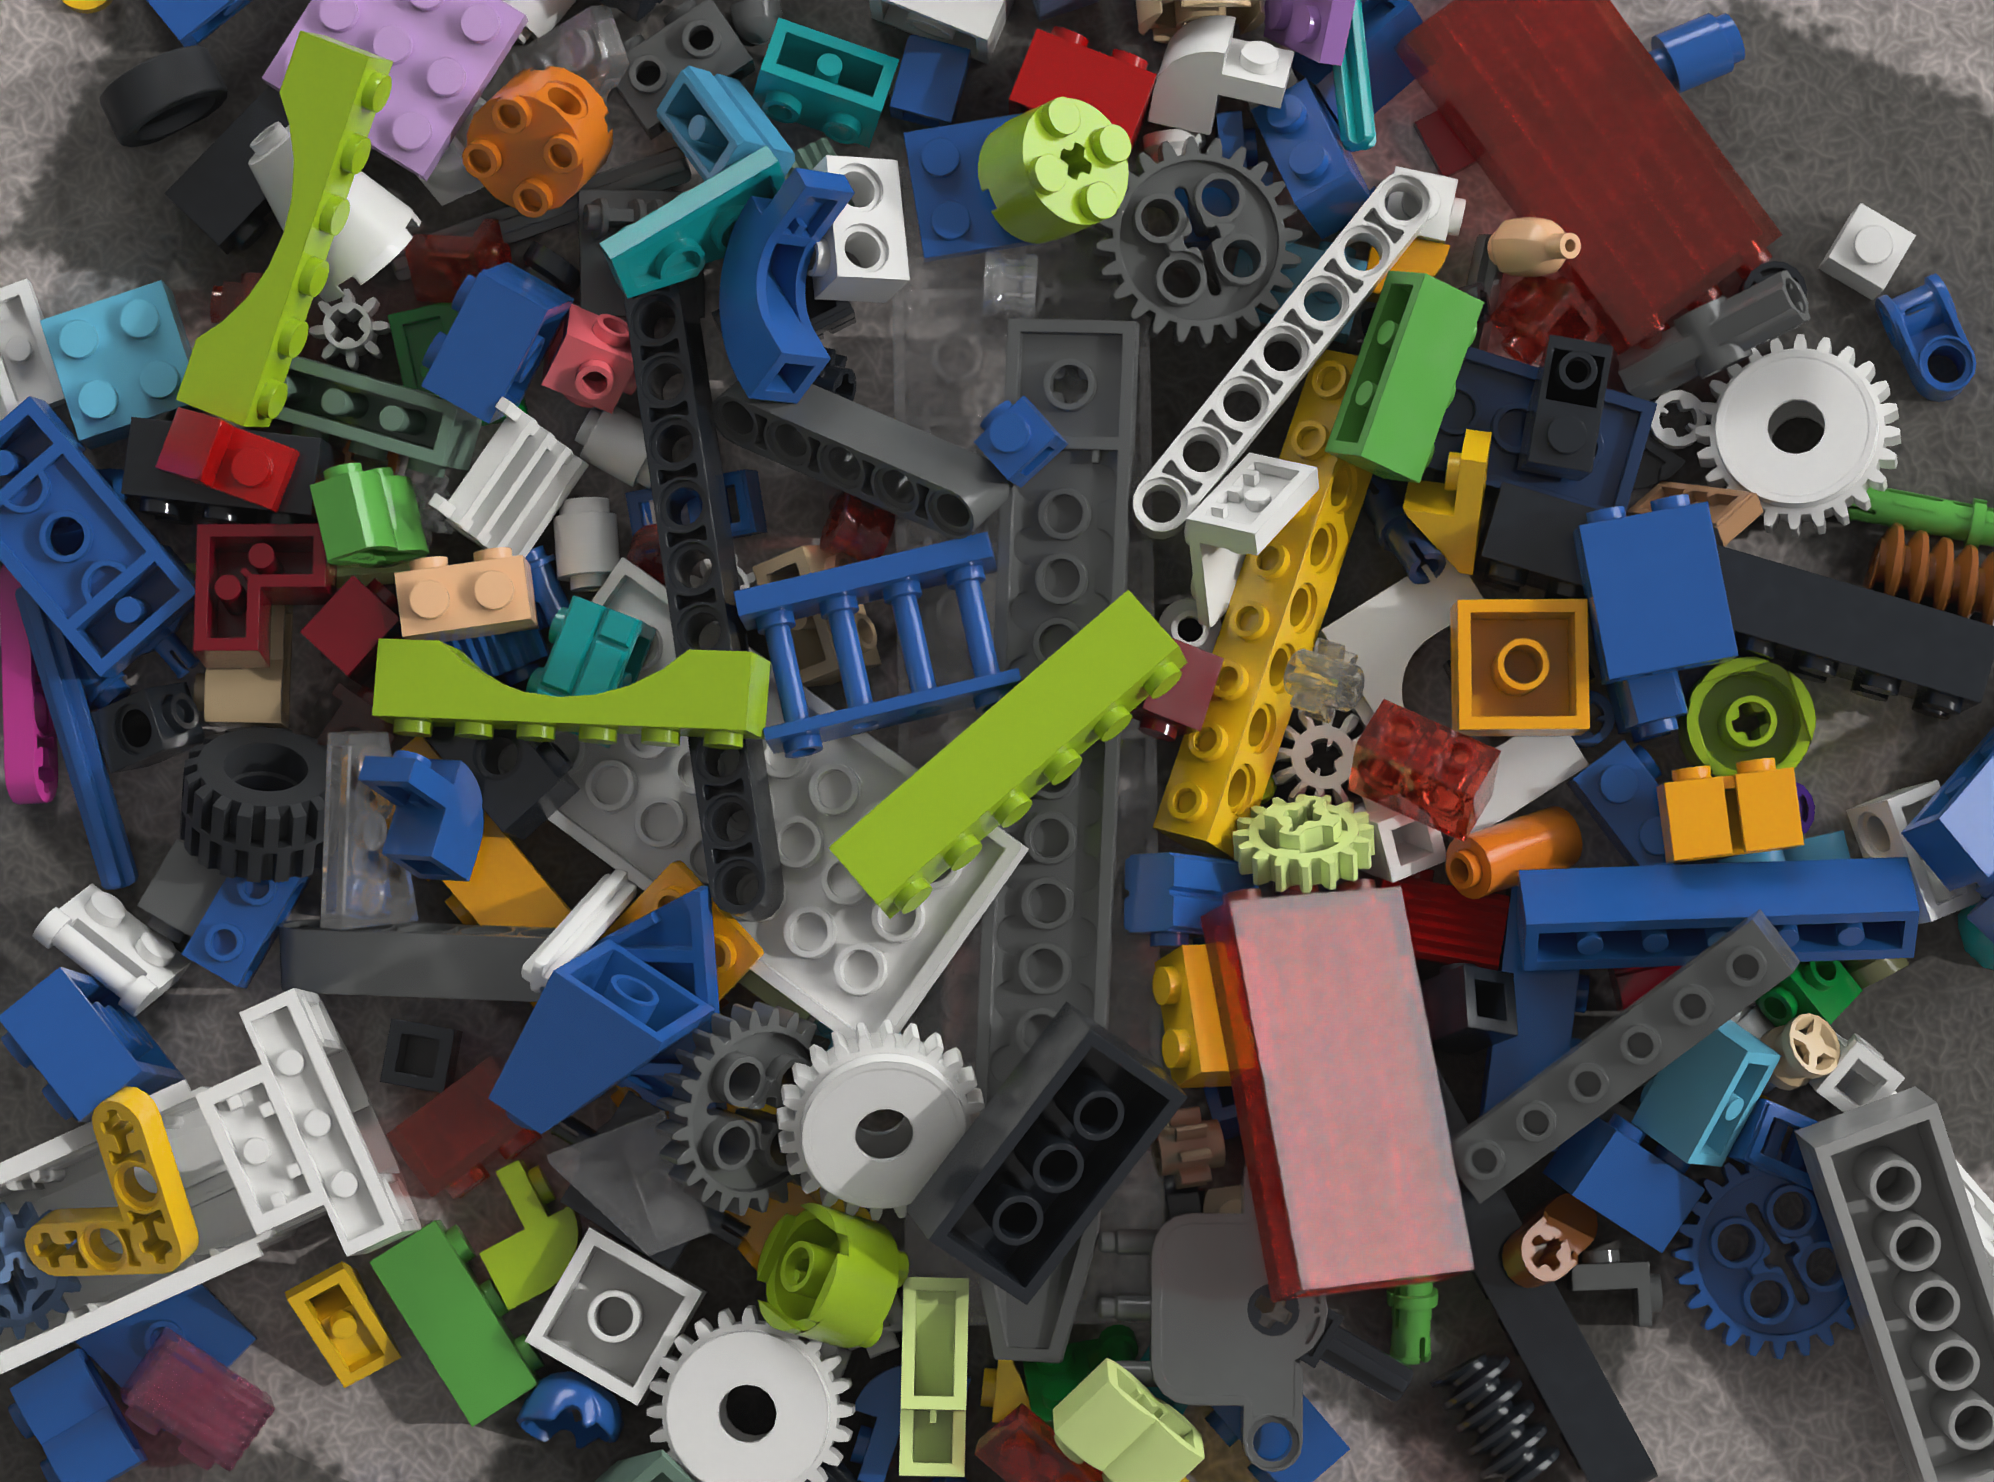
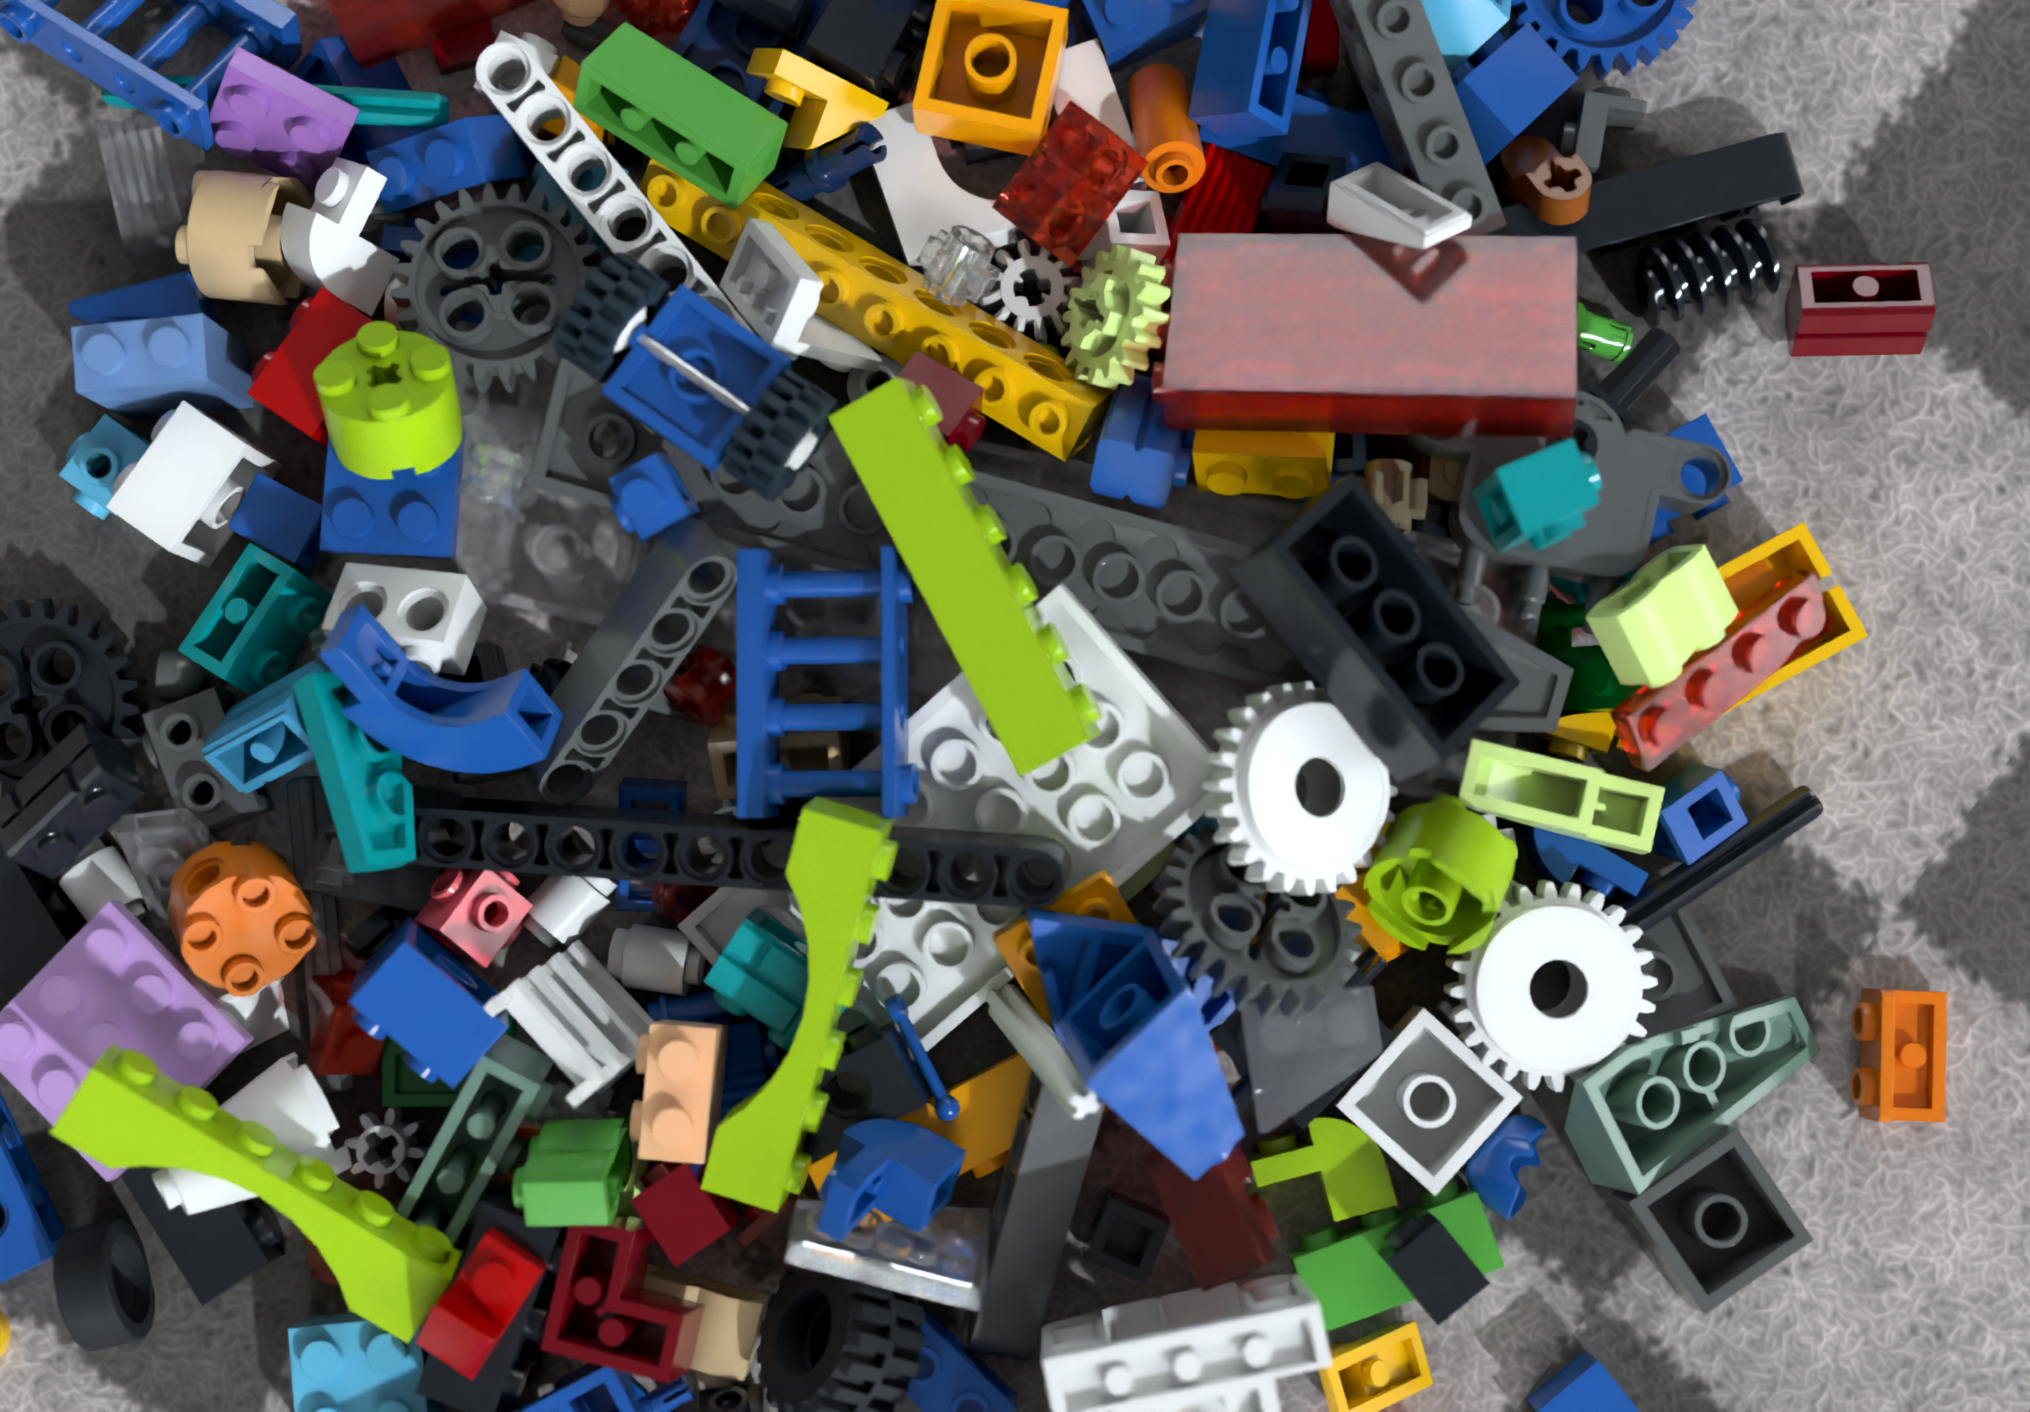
camera: 75 degrees left, 0 degrees up
(457, 1350) = (1431, 1265): none -> black brick
(506, 854) = (946, 1106): none -> blue hinge
(1139, 455) = (694, 376): none -> plate
(1203, 1280) = (1539, 497): none -> teal brick
(1488, 1067) = (1392, 208): none -> white slope

